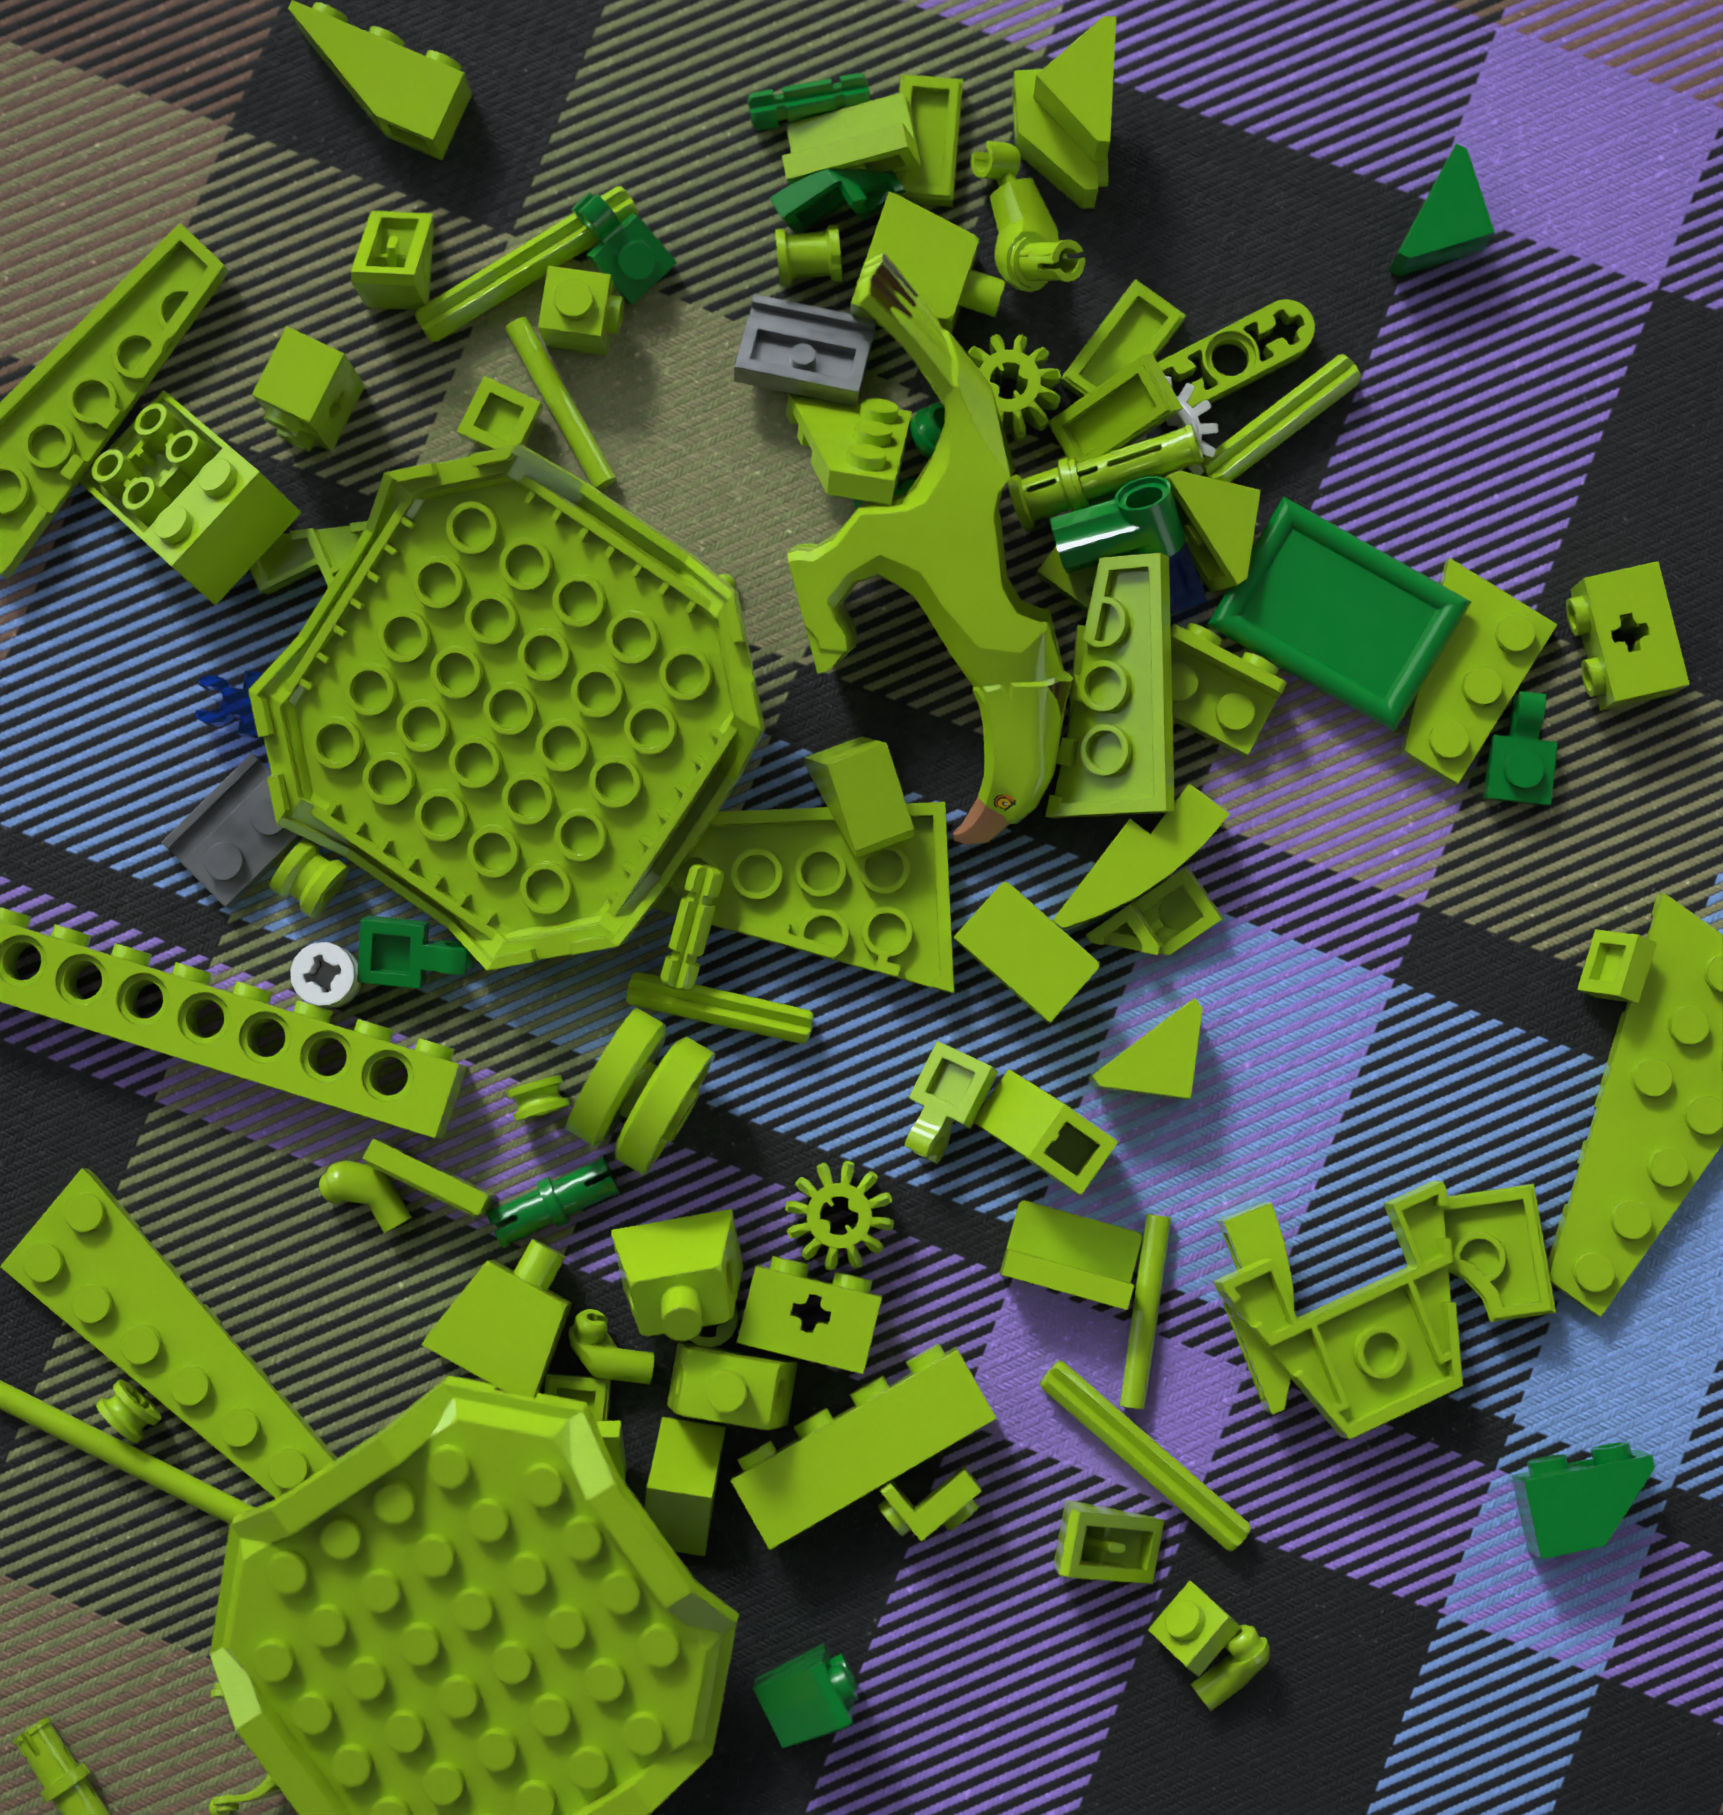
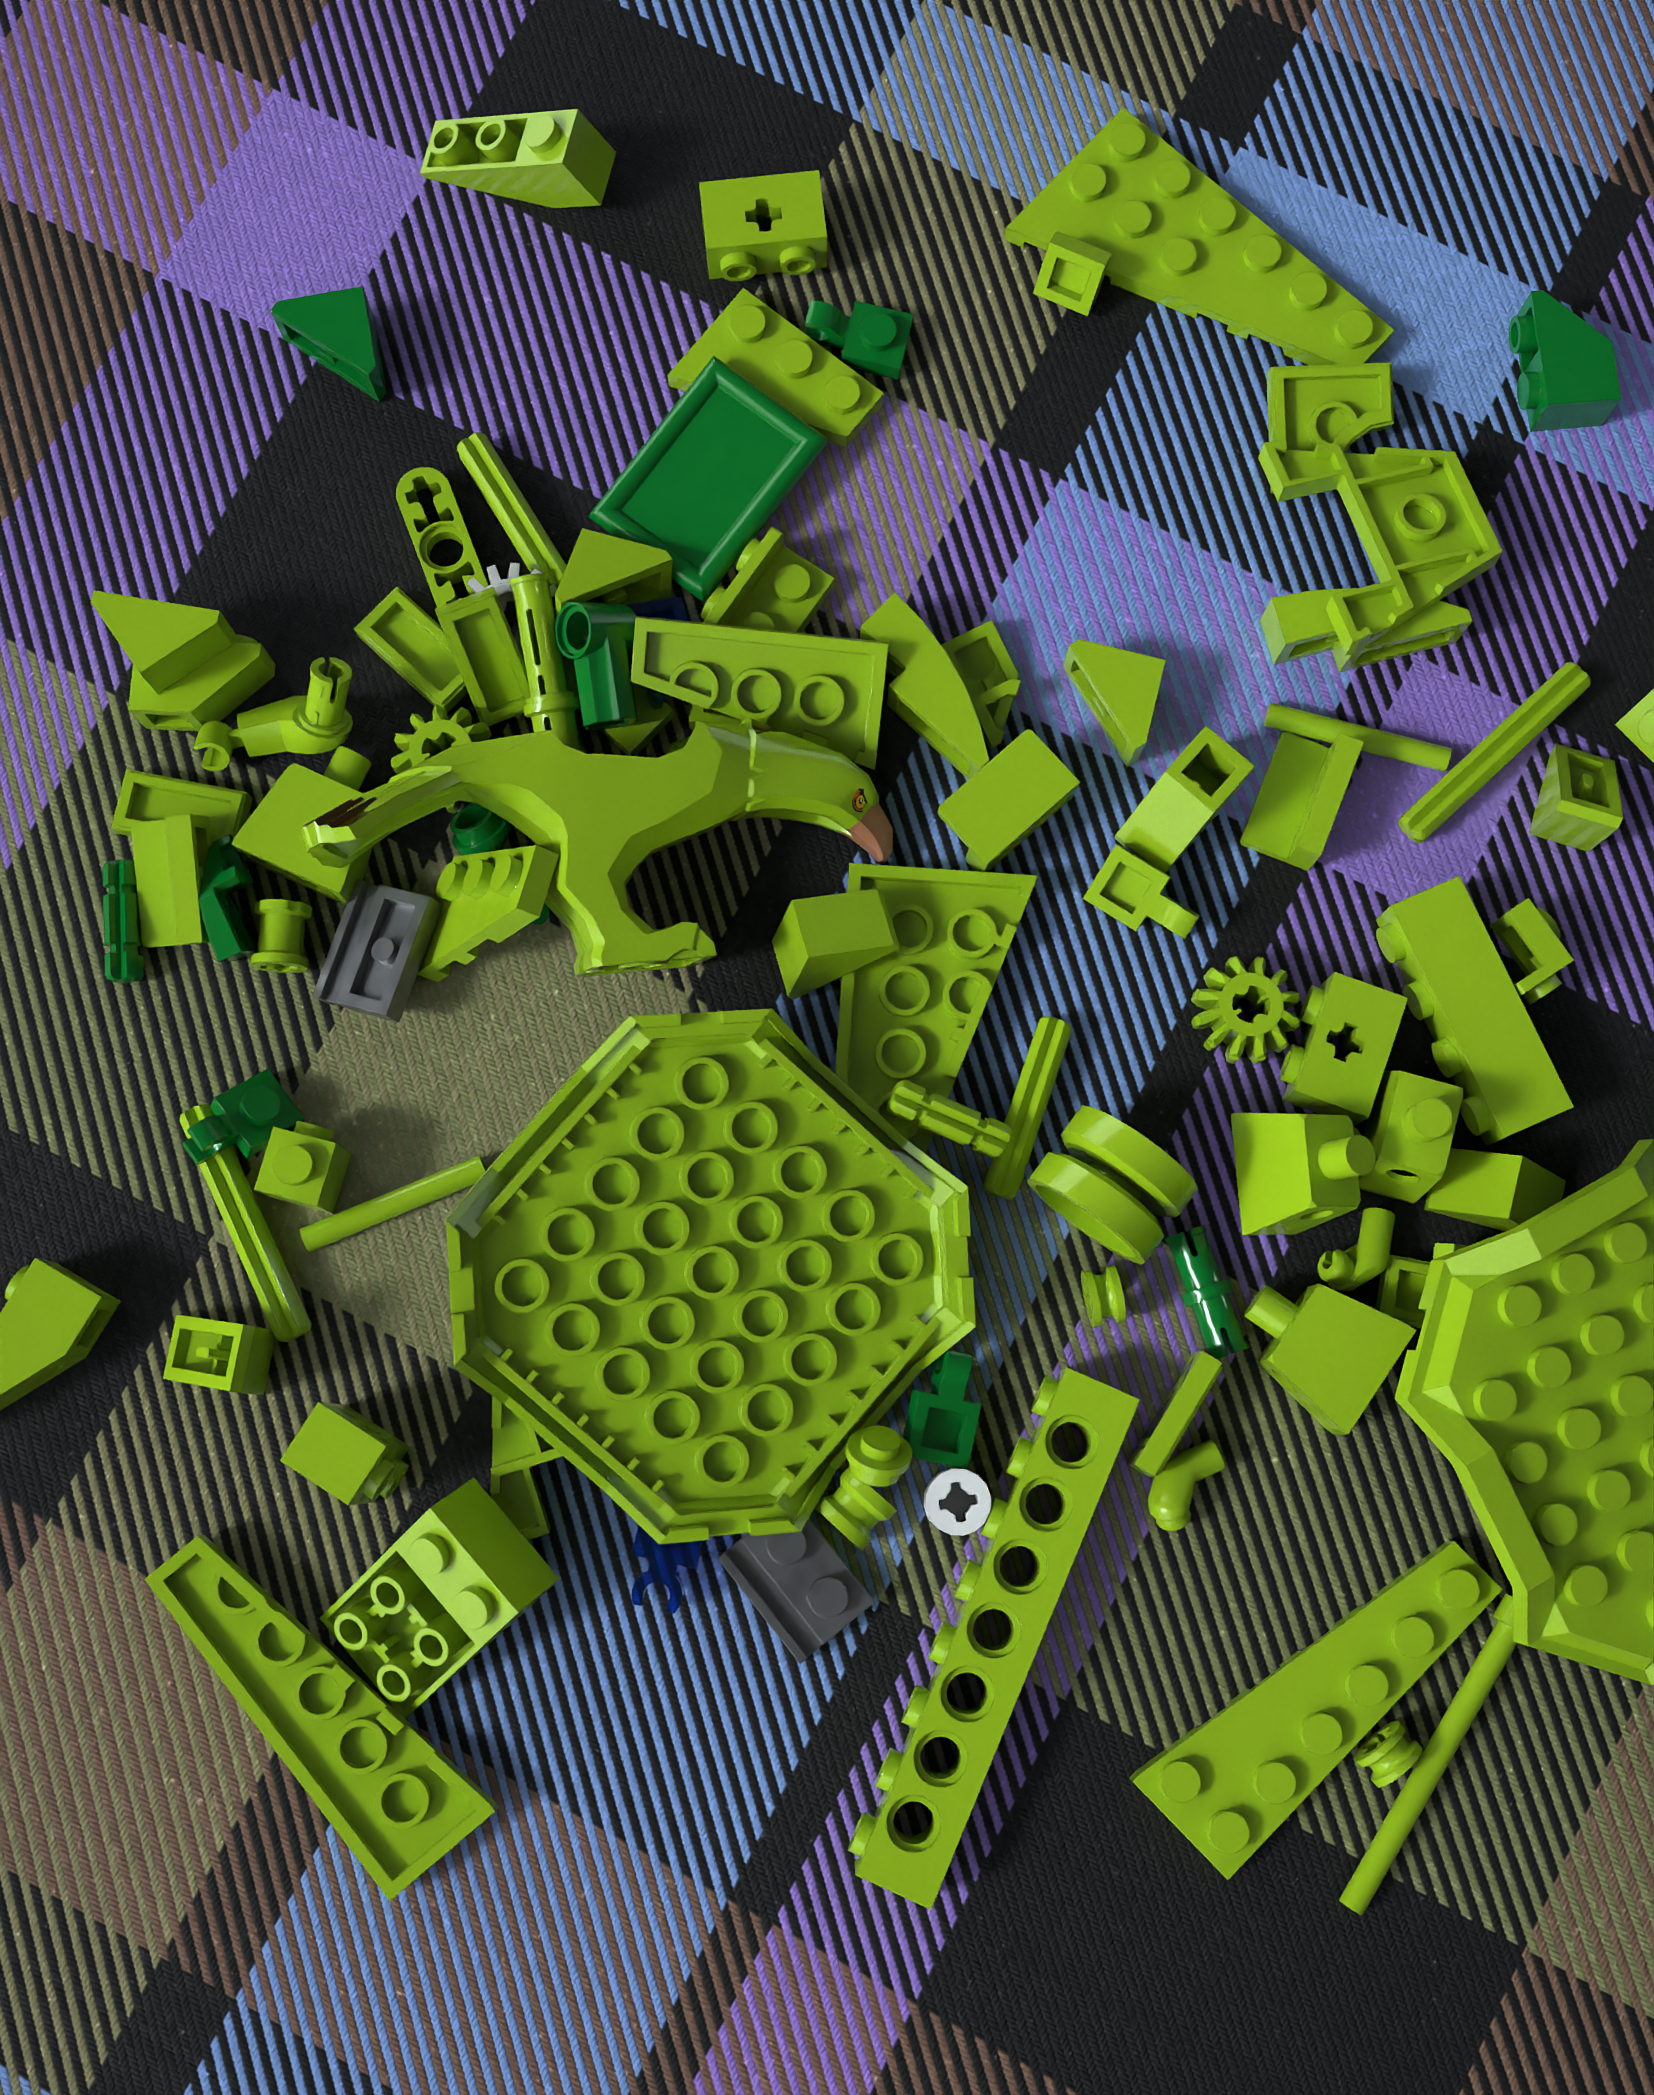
camera: 90 degrees left, 5 degrees down
(357, 891) = (878, 1455): none -> lime plate
(499, 416) = (403, 1264): lime plate -> none
(1672, 376) = (527, 157): none -> lime slope

